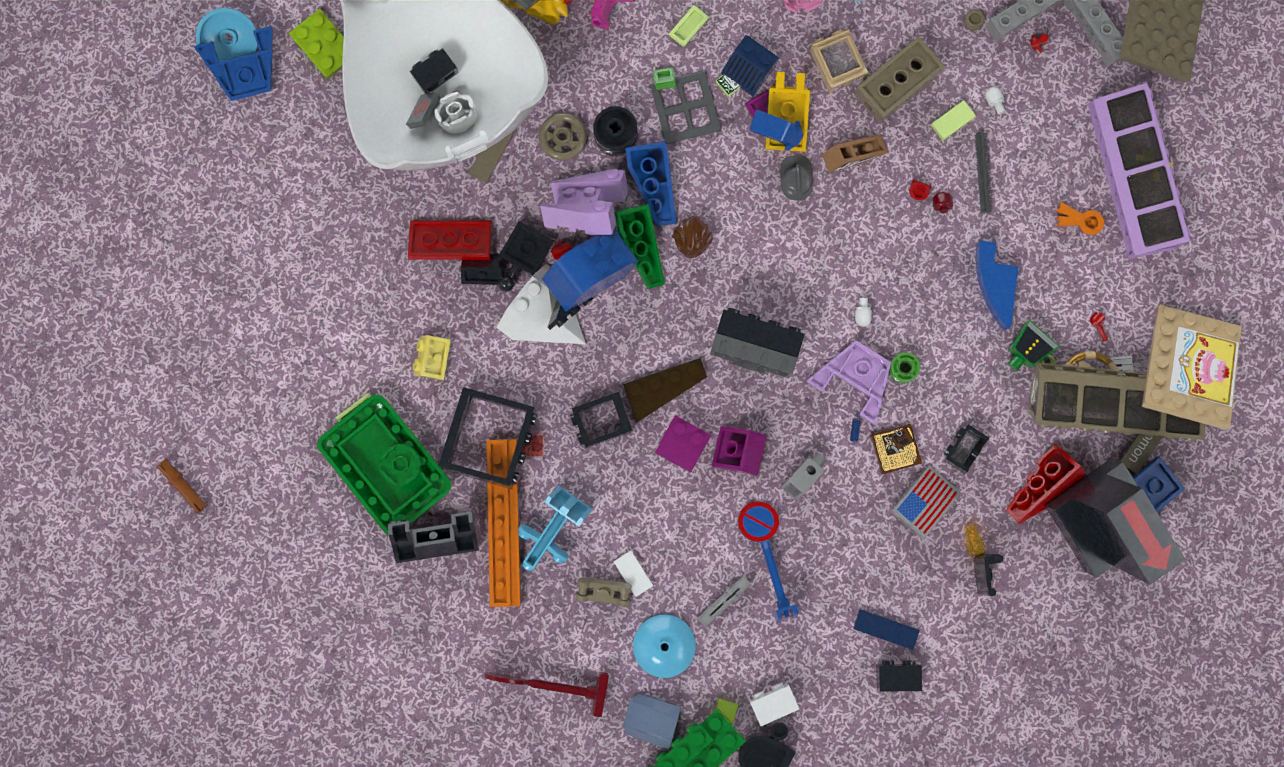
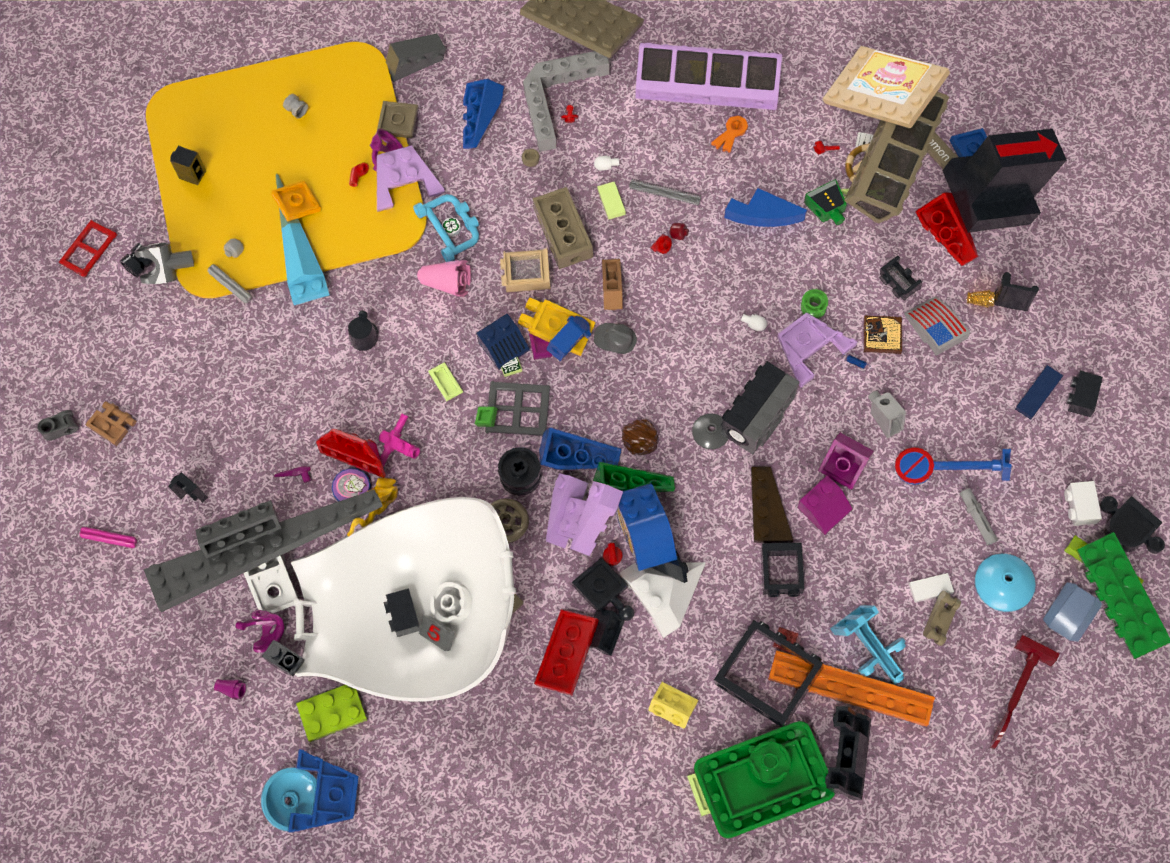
camera: 70 degrees left, 15 degrees down
(722, 295) = (706, 438): none -> dark grey dish

